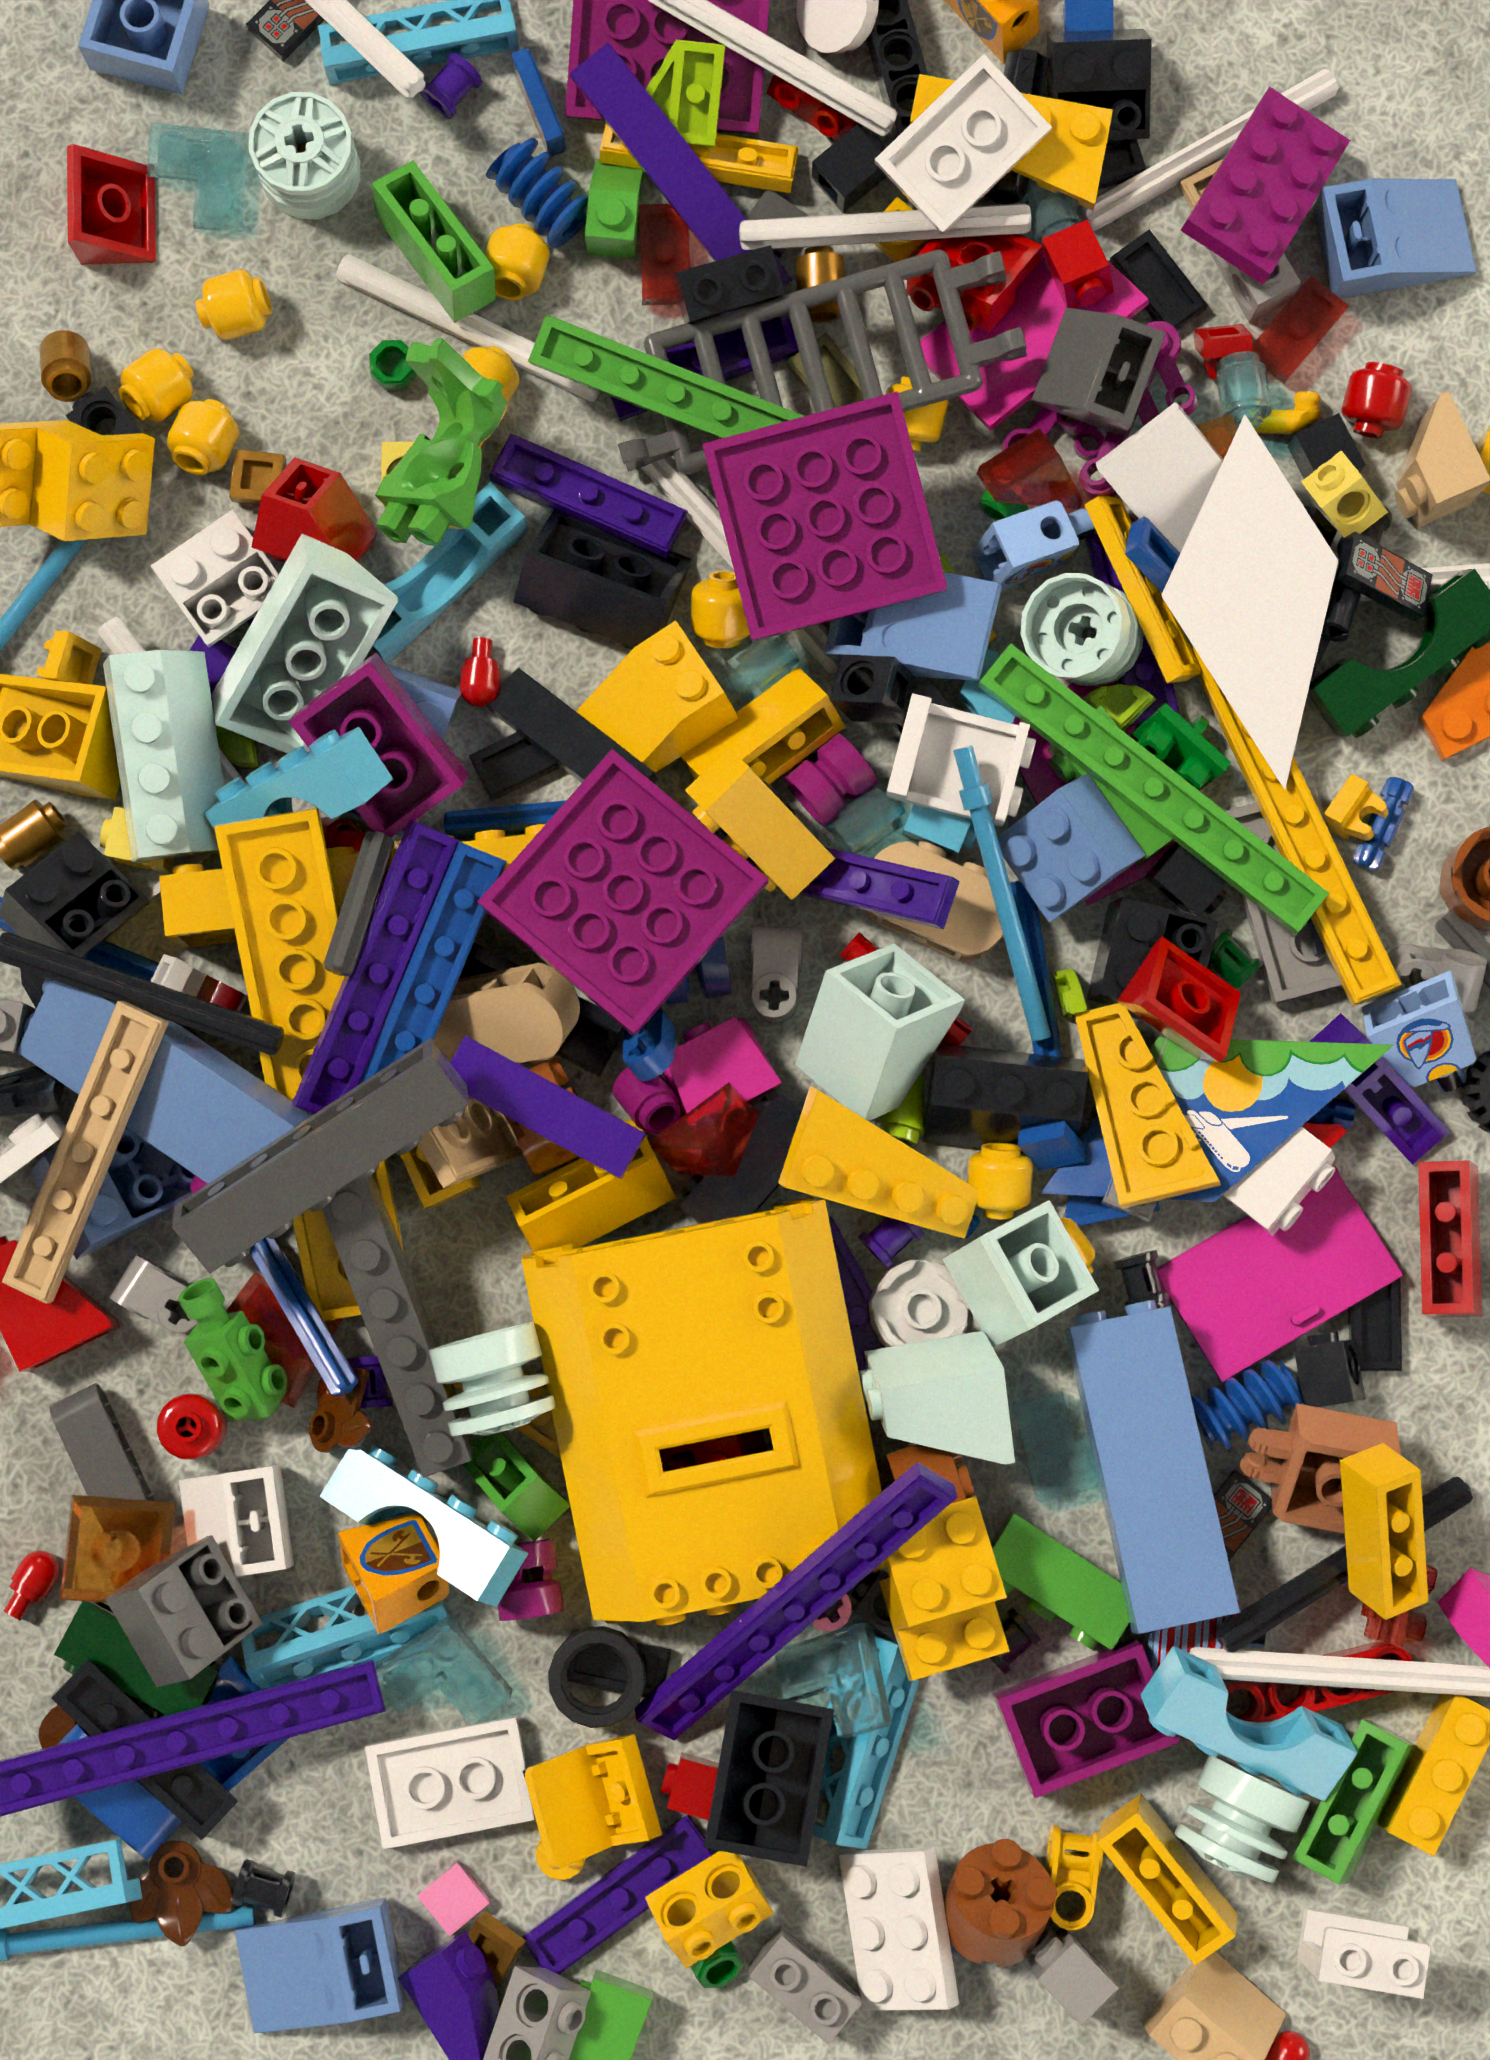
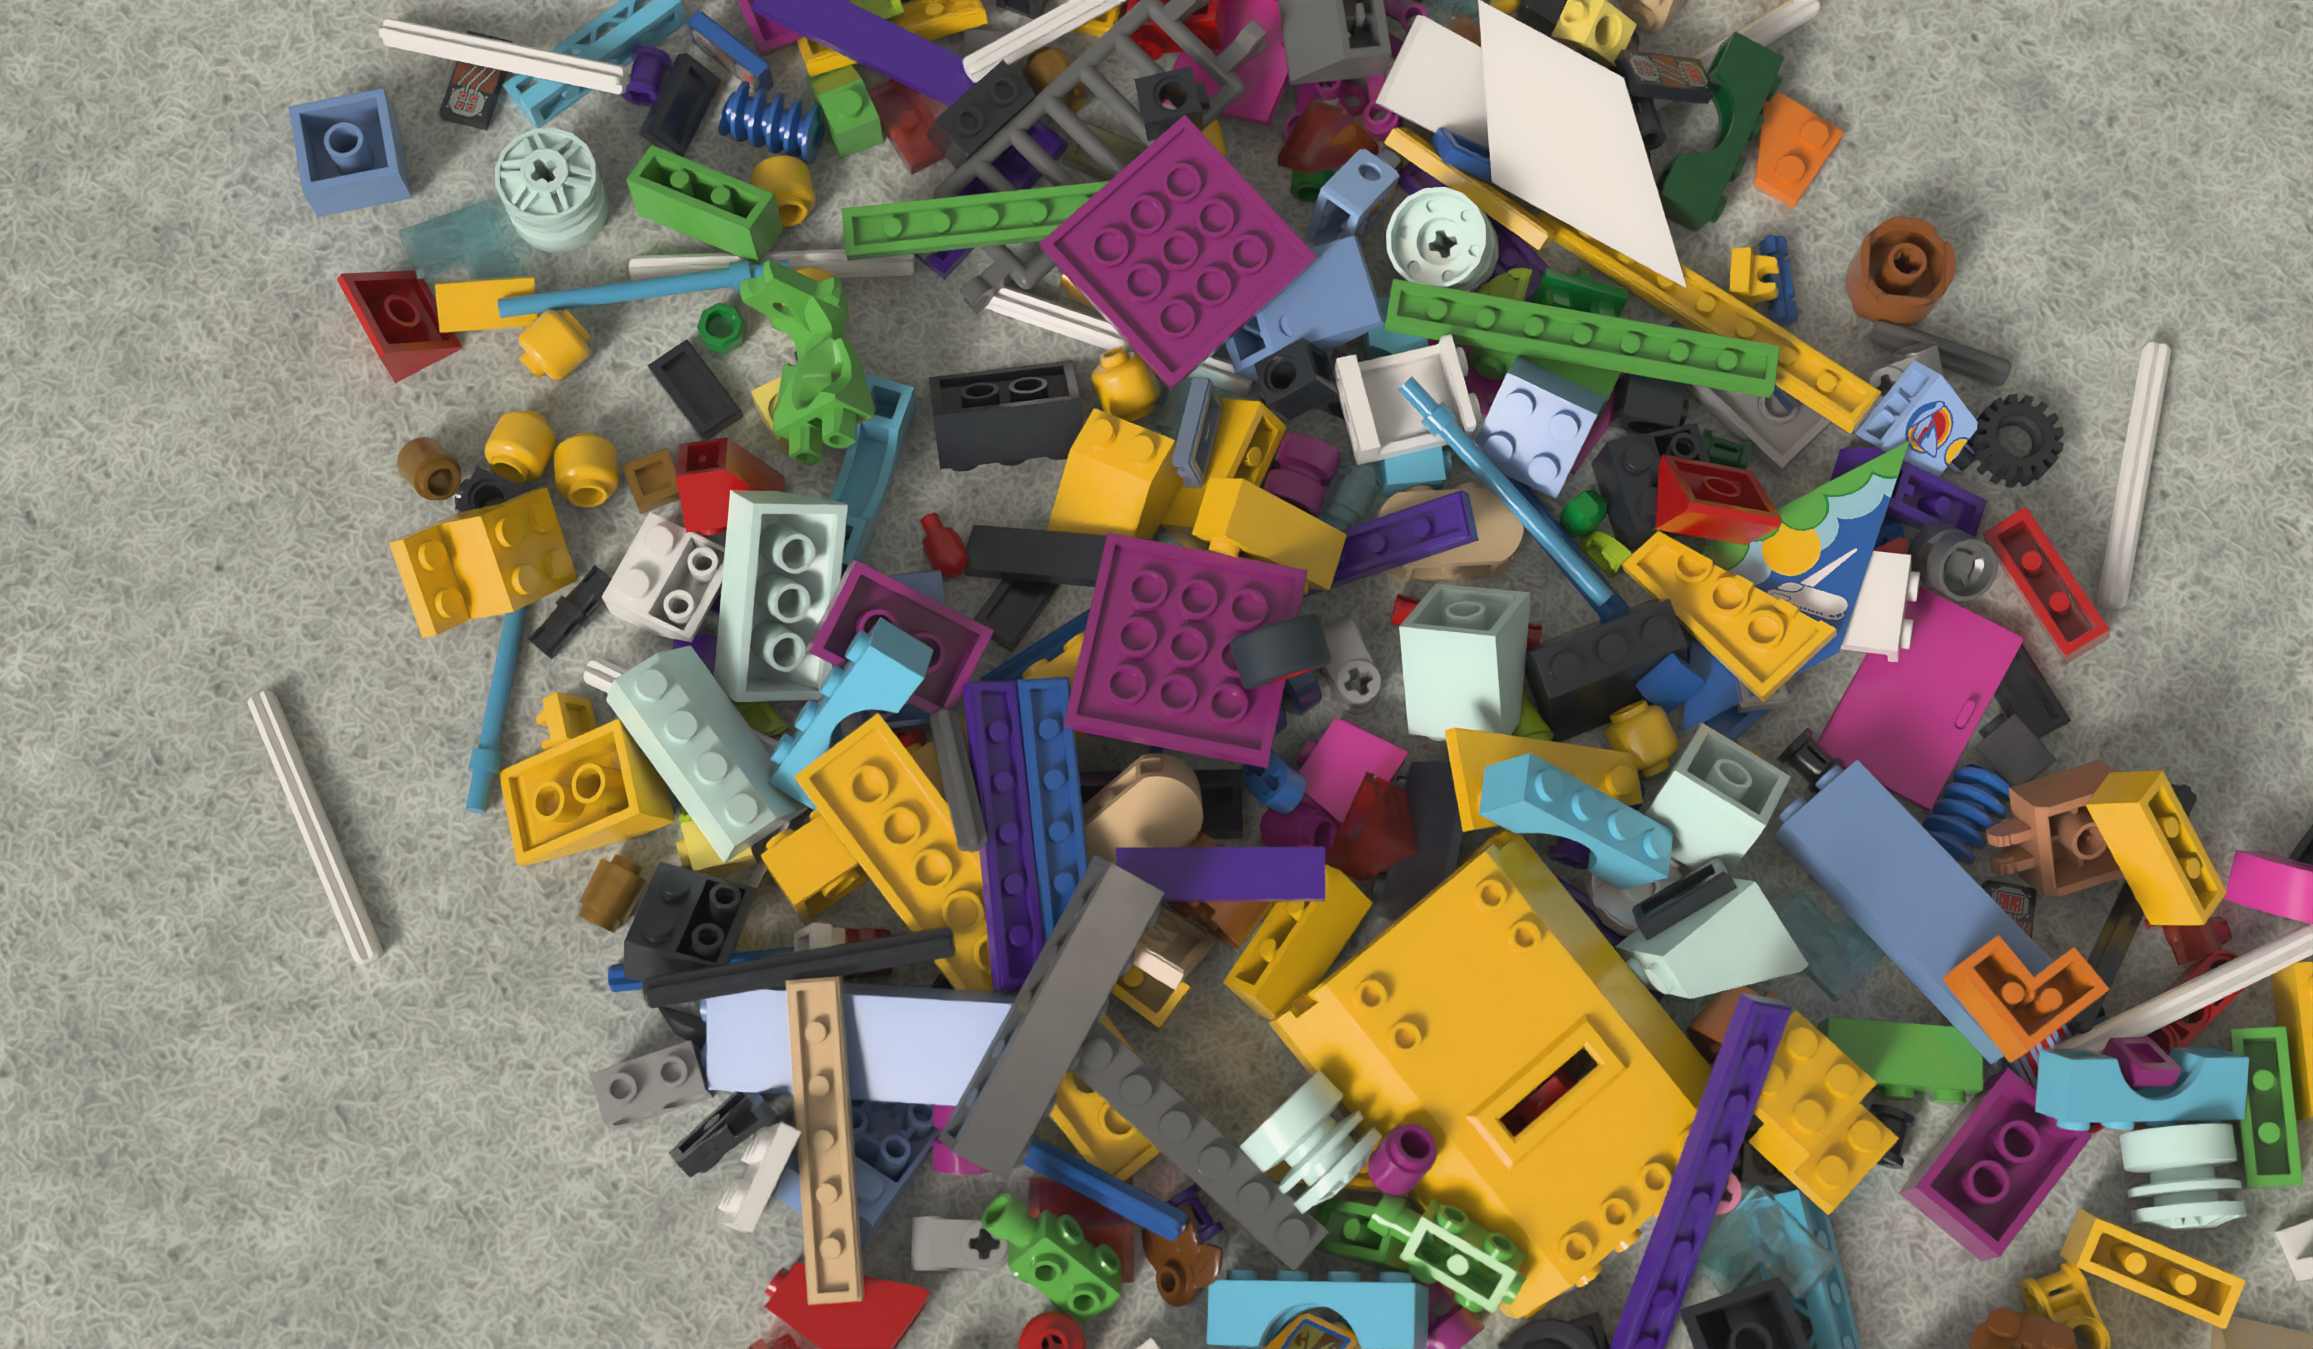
camera: 30 degrees left, 10 degrees down
(123, 562) = (571, 613): none -> black pin
(193, 233) = (474, 303): none -> yellow tile
(339, 411) = (695, 390): none -> black tile
(429, 323) = (632, 290): none -> dark azure bar
(465, 130) = (680, 105): none -> black tile
(557, 1438) = (1402, 1159): none -> magenta brick
(560, 1536) = (1454, 1251): none -> bright green brick
(588, 495) = (956, 350): dark purple tile -> none
(694, 943) = (1280, 651): none -> black wheel
(754, 693) = (1197, 432): none -> sand blue tile
(861, 1202) = (1540, 798): none -> medium azure arch
(883, 354) = (1157, 88): none -> black brick
(942, 1344) = (1683, 898): none -> black tile
(1070, 948) = (1583, 513): none -> green tile
(1169, 1607) = (2013, 1004): none -> orange brick
(1259, 1704) = (2142, 1062): none -> magenta plate
(1375, 1173) = (1953, 561): none -> dark grey wheel

